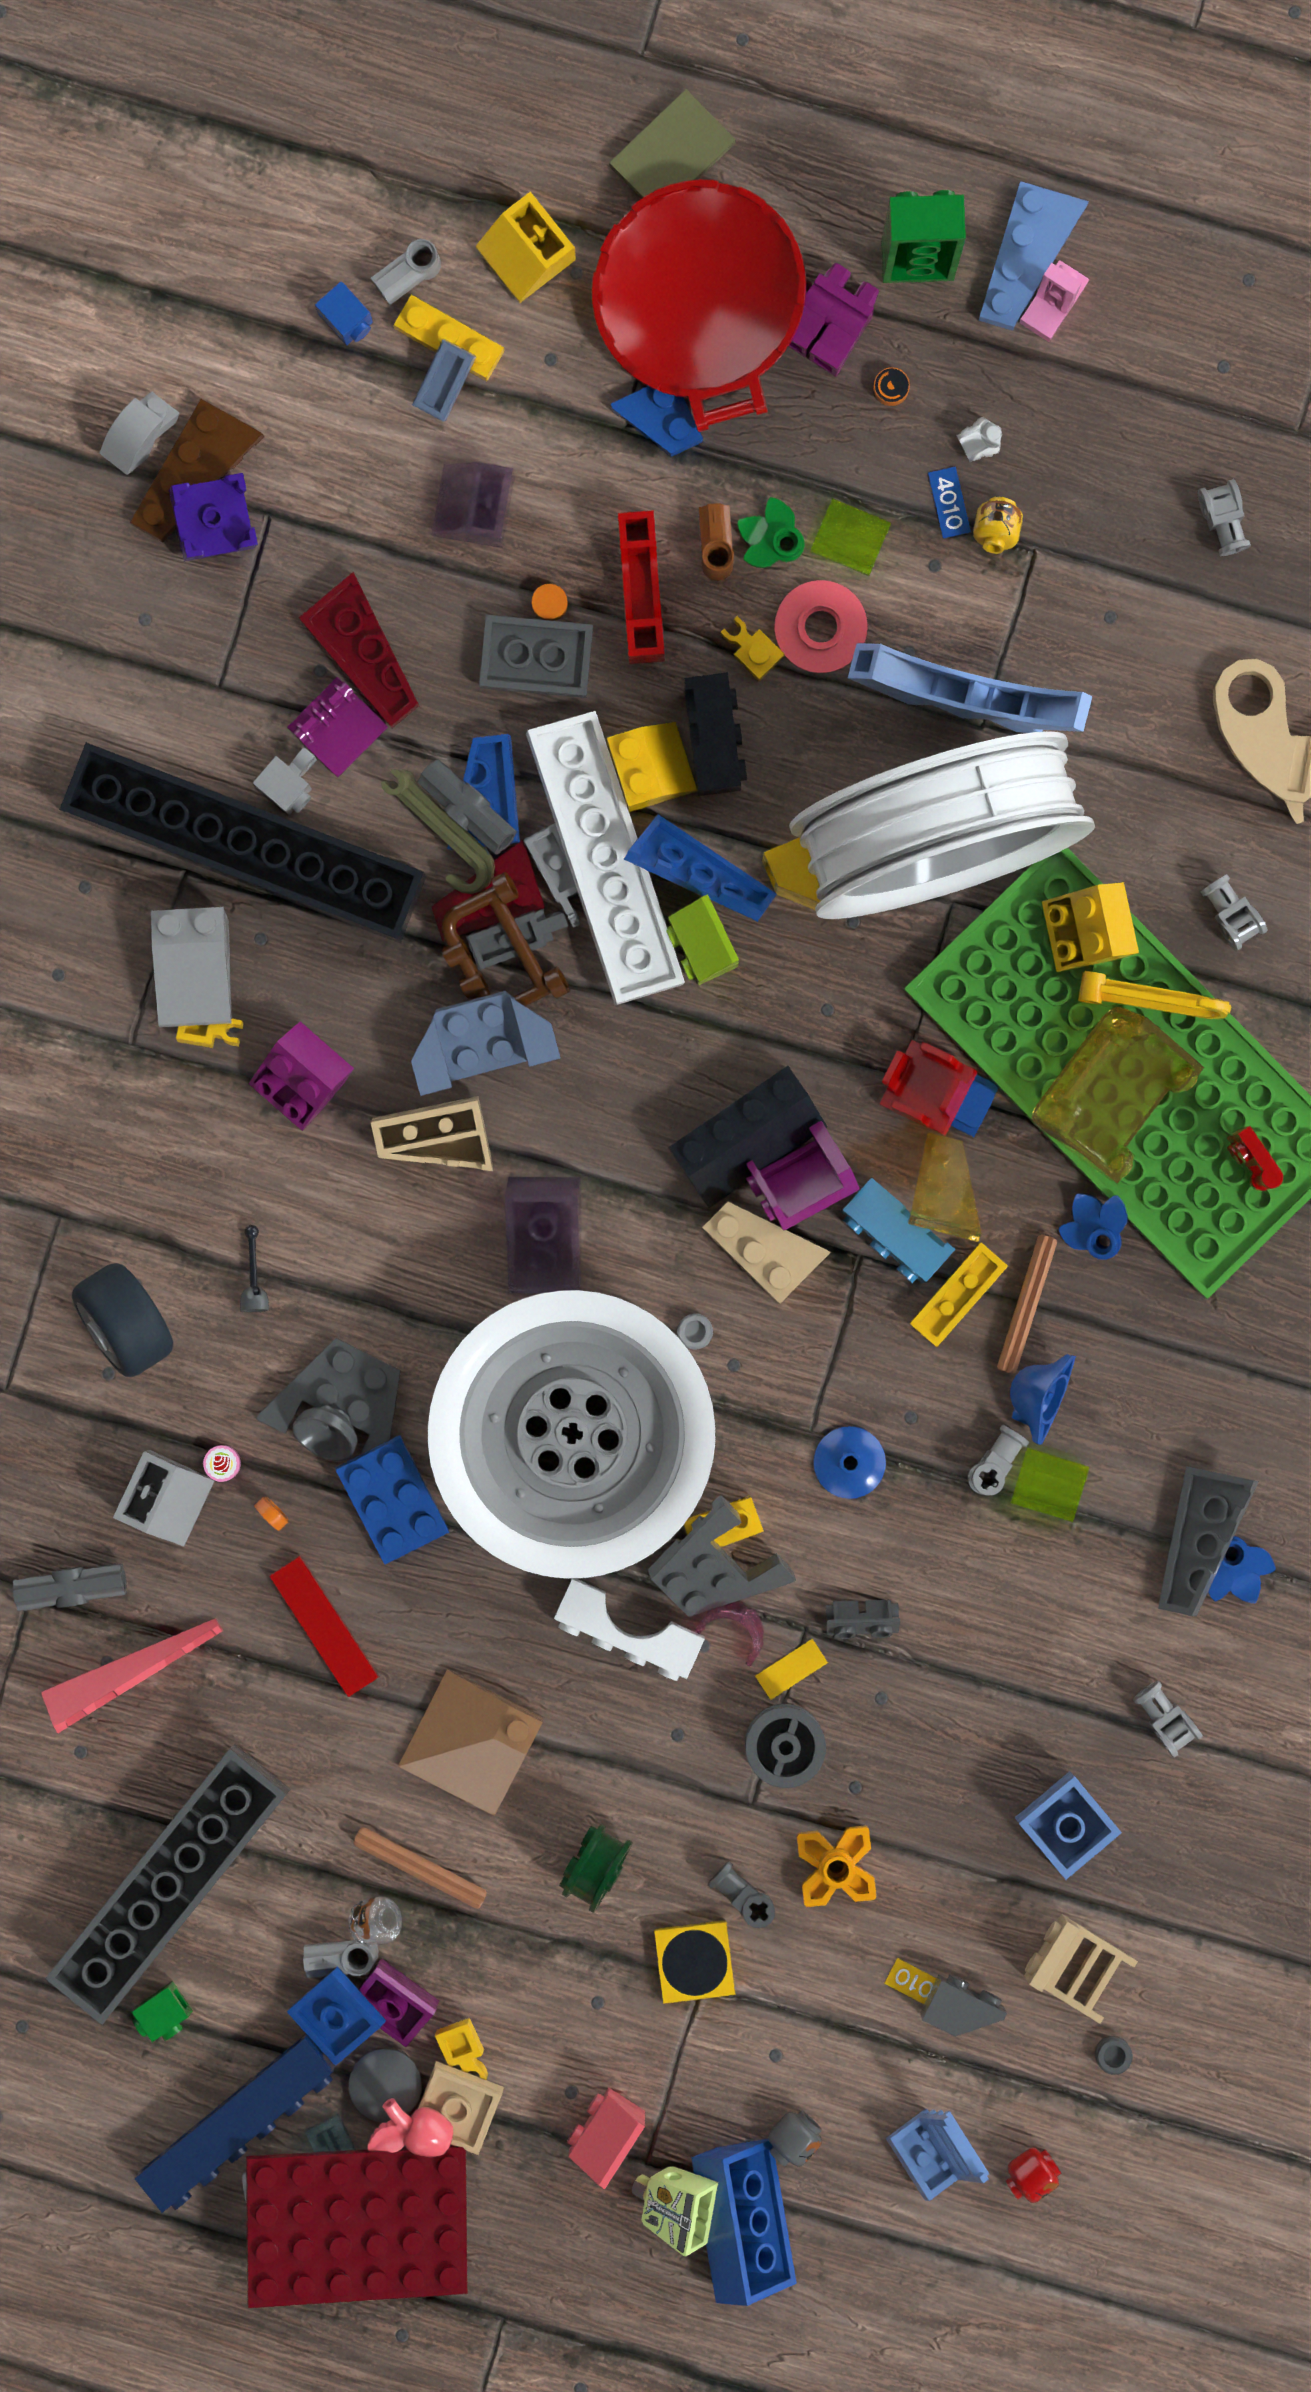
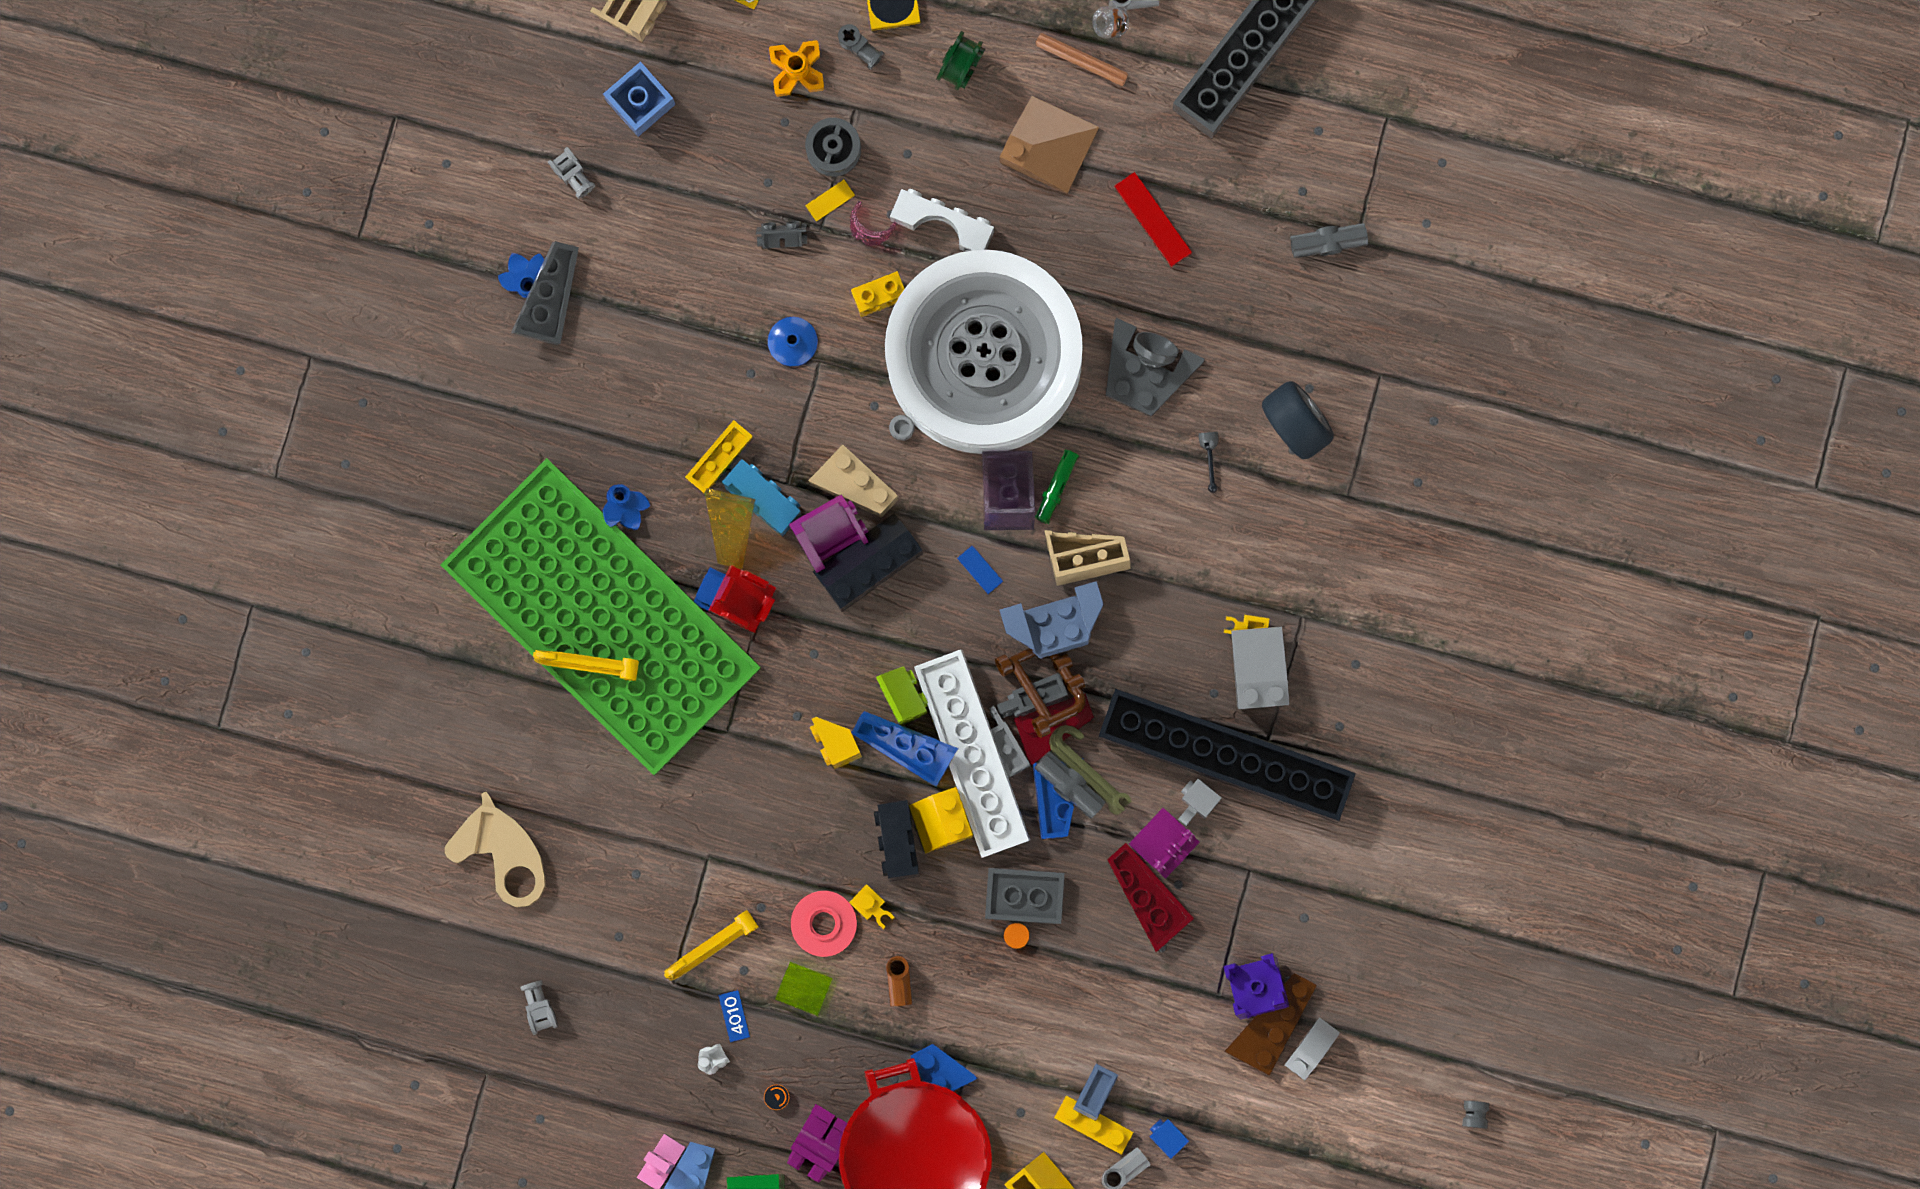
camera: 175 degrees left, 5 degrees down
(91, 1690) = (1304, 174): coral wedge -> none
(163, 1498) = (1265, 302): light grey slope -> none
(222, 1463) = (1227, 328): tile -> none
(271, 1513) = (1191, 294): orange tile -> none
(300, 1075) = (1181, 595): magenta slope -> none
(392, 1499) = (1108, 306): blue plate -> none
(474, 503) = (1072, 1002): clear purple slope -> none
(481, 1224) = (1056, 487): none -> green pin
(587, 1124) = (980, 569): none -> blue sticker
(641, 587) = (951, 944): red arch -> none
(703, 1576) = (890, 259): dark grey wing -> none
(767, 532) = (864, 987): green plate -> none
(933, 626) = (743, 924): none -> yellow piece
(941, 824) = (736, 762): white wheel -> none
(968, 695) = (718, 872): light blue arch -> none
(998, 524) = (699, 997): yellow head -> none
(998, 1461) = (690, 342): light grey connector -> none
(1027, 1304) = (671, 452): nougat axle -> none
(1038, 1395) = (663, 389): blue hat -> none
(1049, 1484) = (654, 329): clear neon green piece -> none
(1090, 926) = (631, 711): yellow slope -> none
(1113, 1089) = (615, 596): clear yellow windscreen -> none
(1233, 913) = (528, 723): light grey connector -> none
(1249, 1149) = (520, 554): red plate -> none

